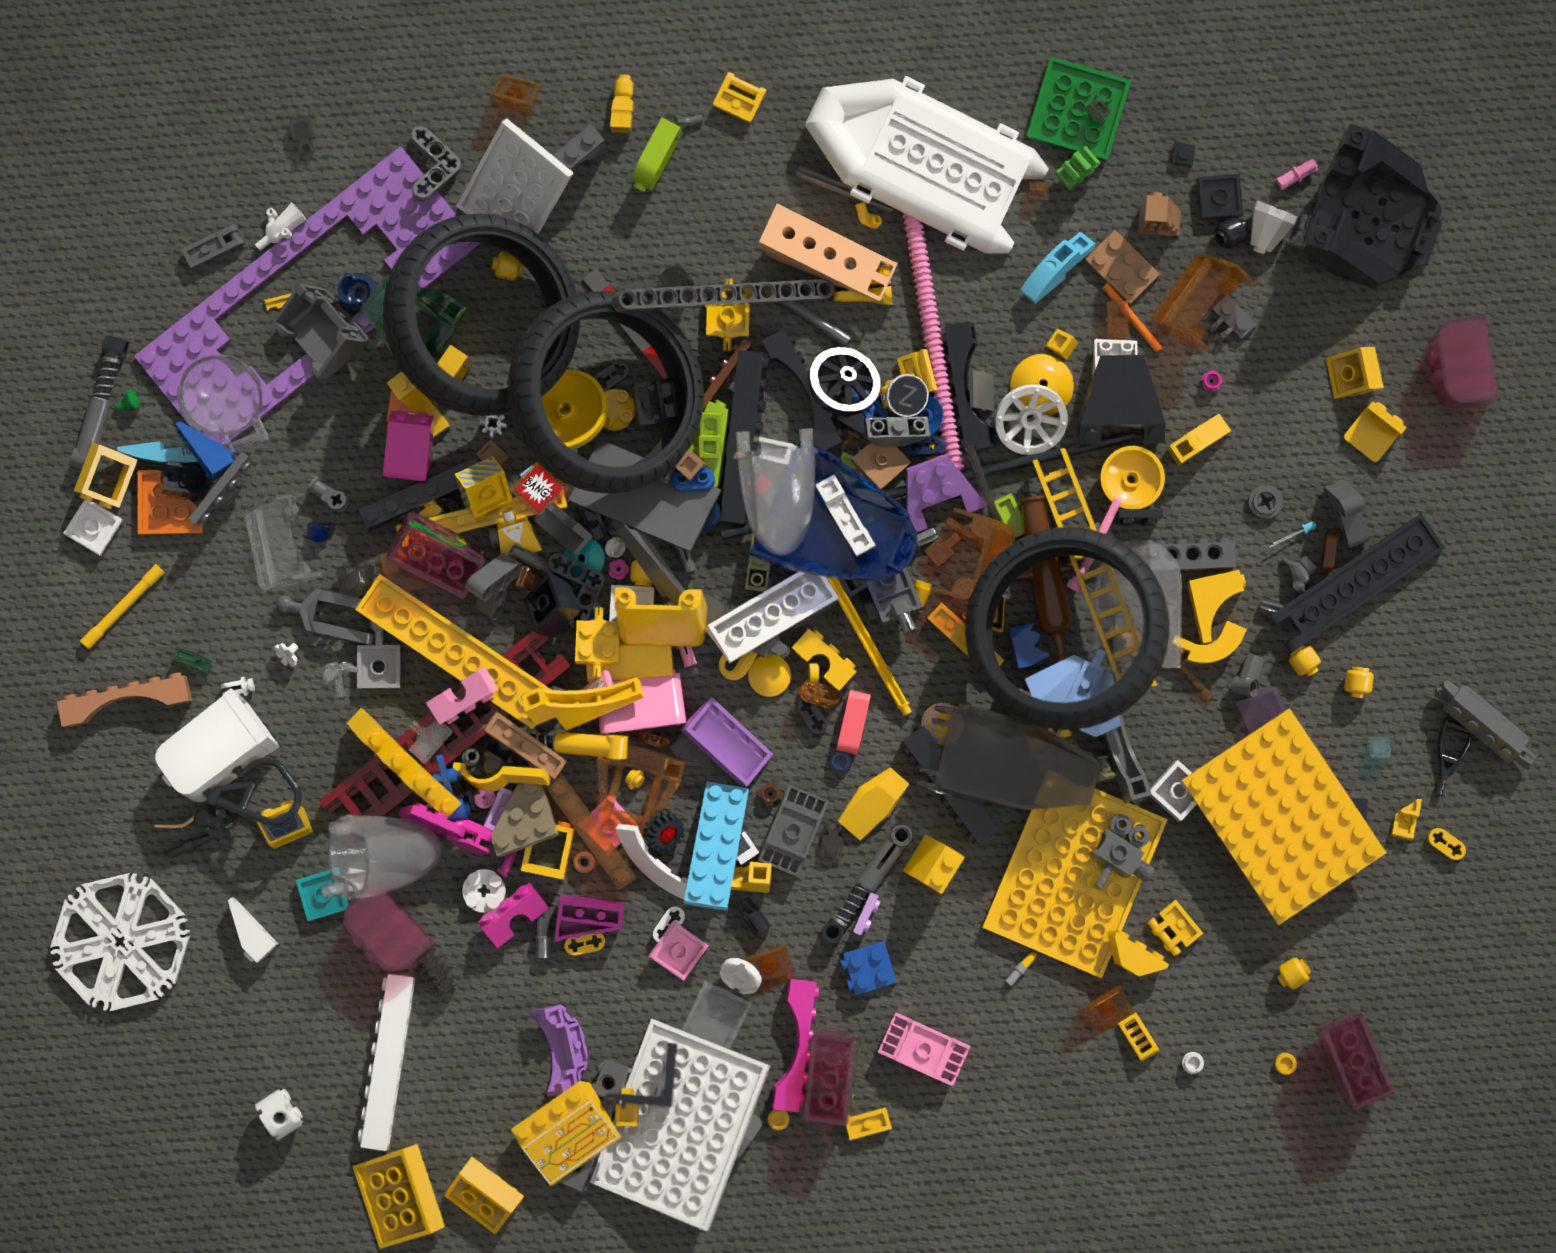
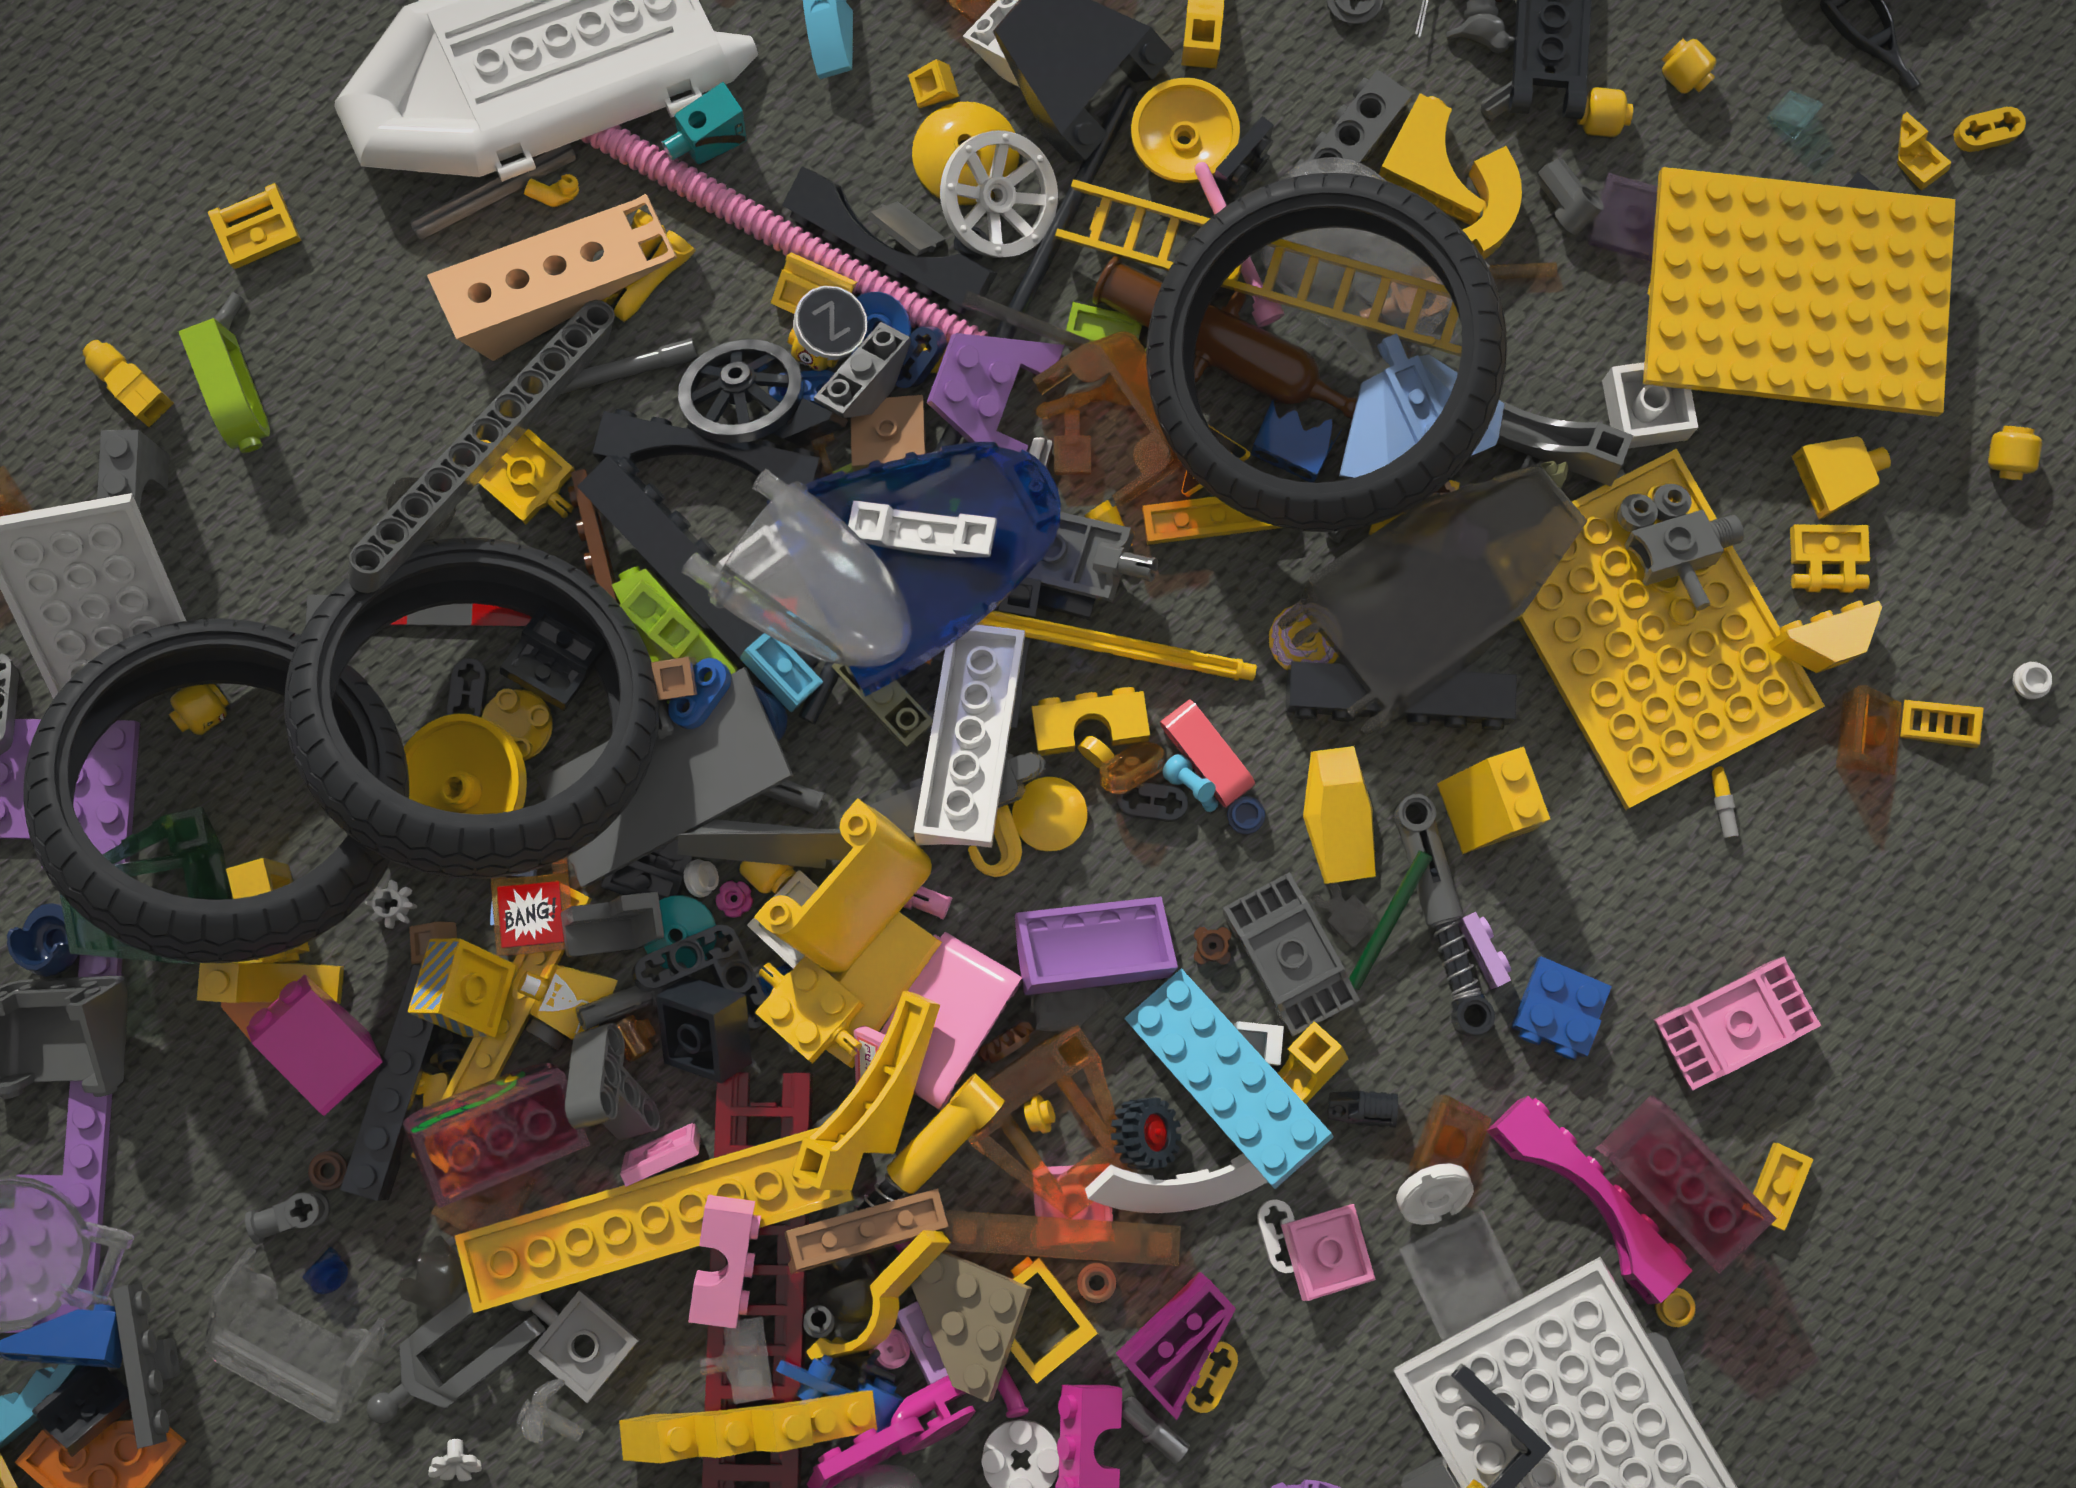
camera: 45 degrees left, 5 degrees down
(360, 488) = (316, 1170): none -> reddish brown plate
(484, 631) = (660, 1154): none -> bright pink tile
(732, 507) = (781, 671): none -> medium azure slope
(829, 864) = (1389, 919): none -> dark green bar
(835, 716) = (1179, 771): none -> medium azure piece
(959, 266) = (707, 126): none -> teal torso
(1218, 901) = (1839, 472): none -> yellow torso

